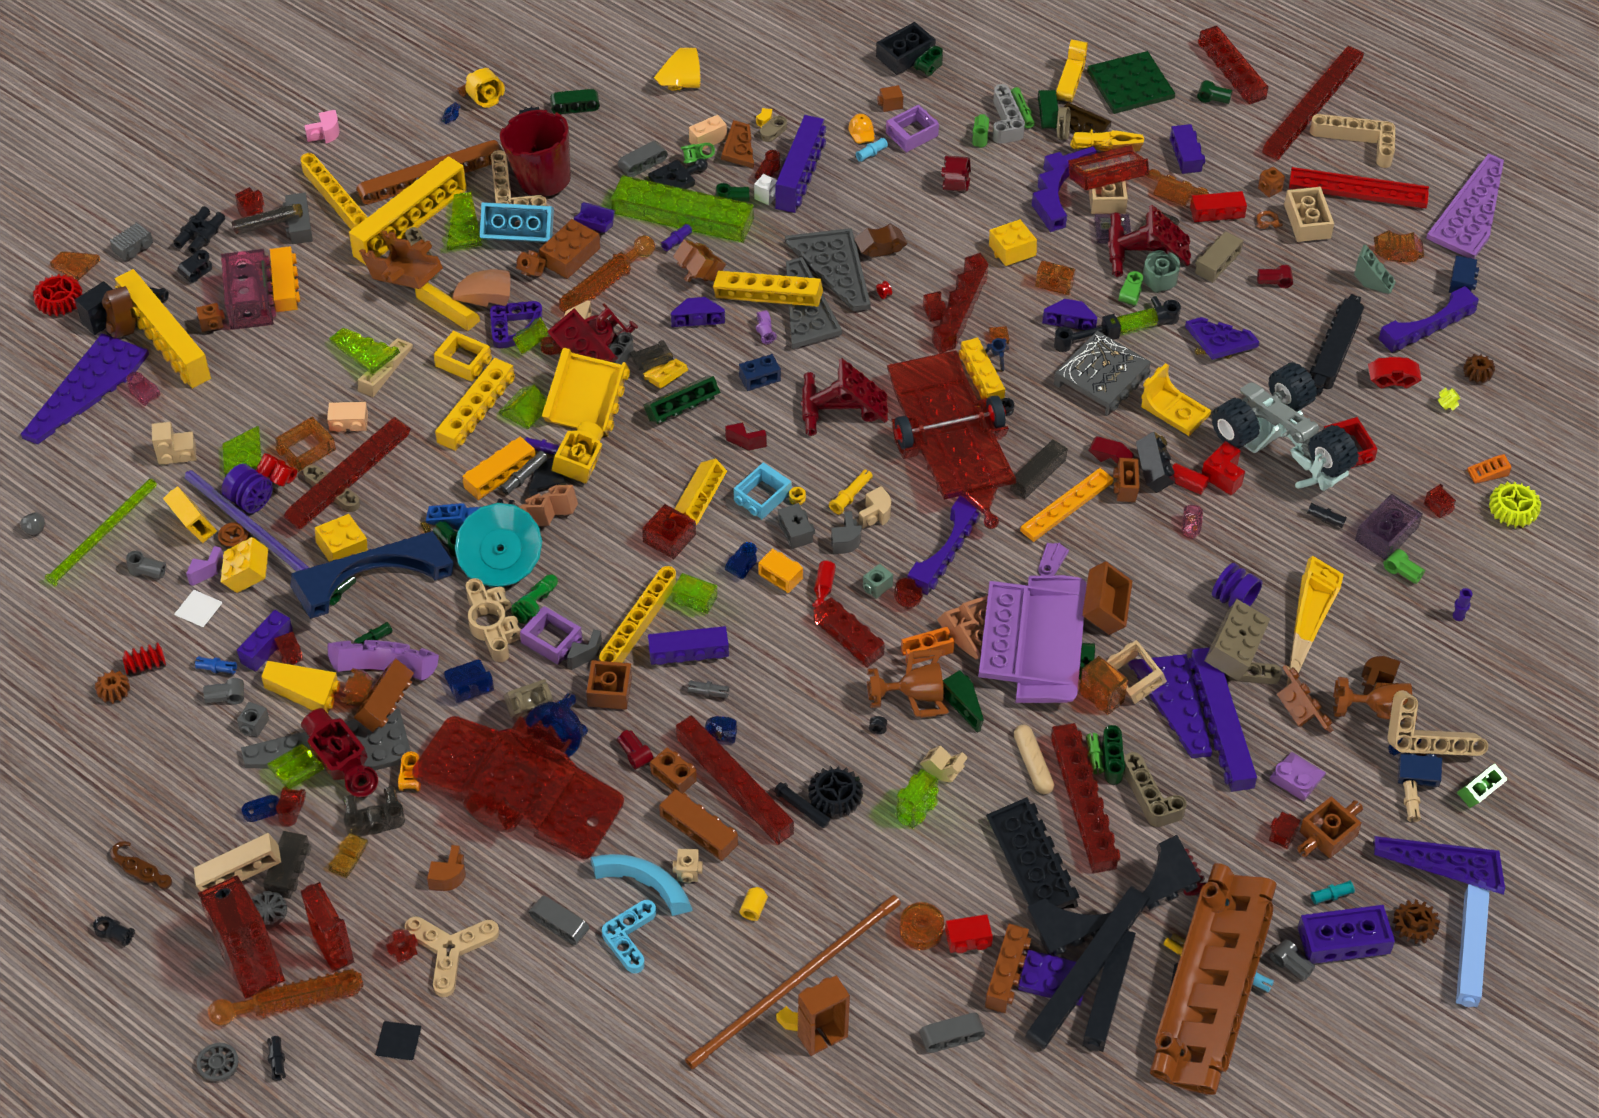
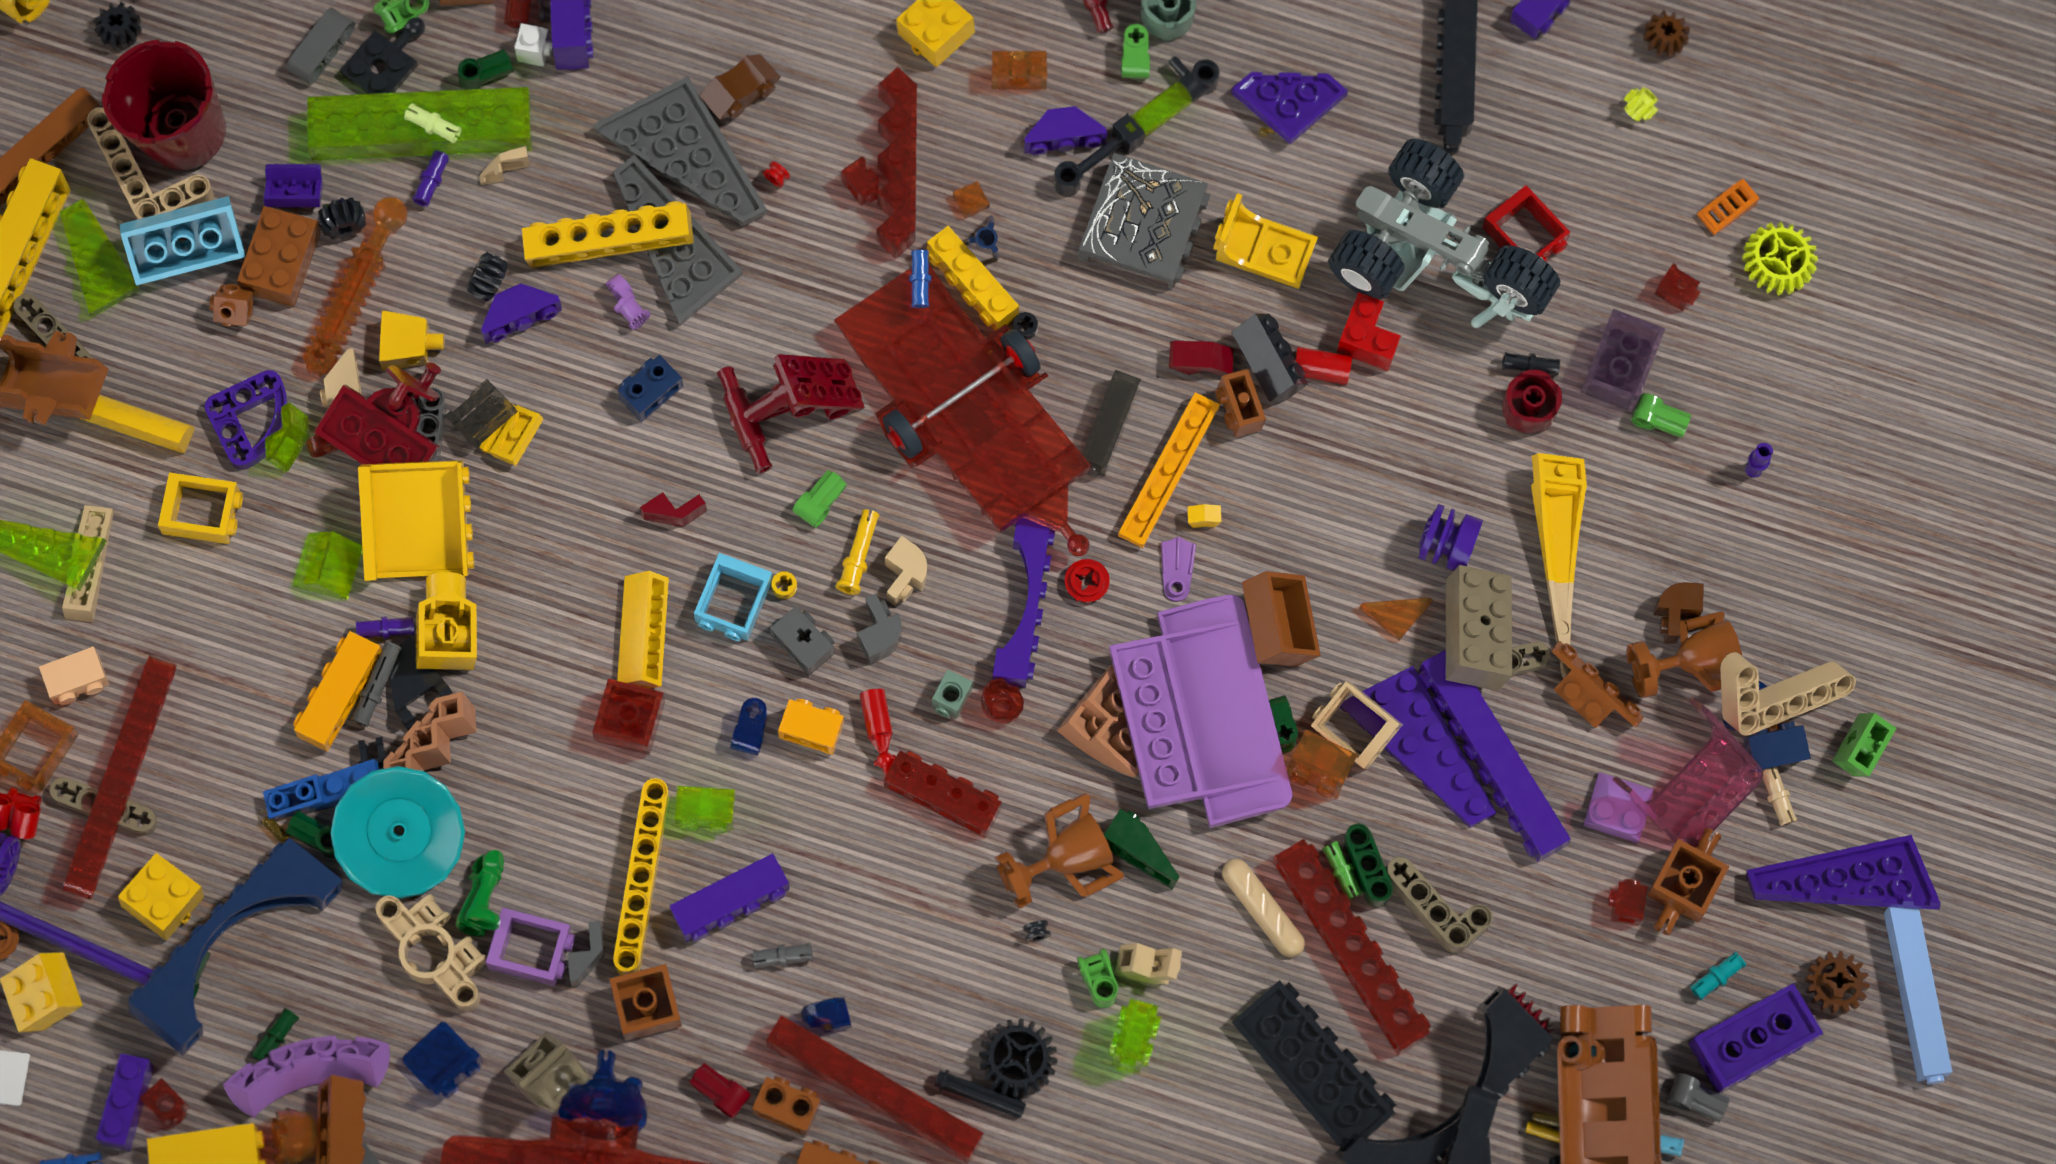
camera: 25 degrees left, 20 degrees up
(475, 404) = (261, 518): yellow brick -> none
(484, 287) = (182, 373): nougat brick -> none
(614, 239) = (341, 218): none -> black gear
(626, 307) = (406, 340): none -> yellow torso
(681, 398) = (556, 477): dark green brick -> none
(686, 288) = (487, 276): none -> black gear
(688, 202) = (432, 123): none -> yellowish green pin
(698, 261) = (486, 220): dark orange brick -> none
(724, 240) = (505, 161): none -> tan slope
(835, 459) = (816, 504): none -> bright green piece
(907, 763) = (1098, 973): none -> bright green piece
(931, 640) = (1060, 766): orange piece -> none
(948, 358) = (920, 279): none -> blue pin
(990, 541) = (1082, 569): none -> red gear
(1079, 534) = (1204, 515): none -> yellow piece
(1186, 625) = (1396, 615): none -> clear orange tile
(1192, 521) = (1350, 440): clear pink rock -> none
(1319, 532) = (1546, 399): none -> dark red brick
(1362, 776) = (1704, 788): none -> clear pink windscreen
(1394, 371) = (1552, 82): red brick -> none

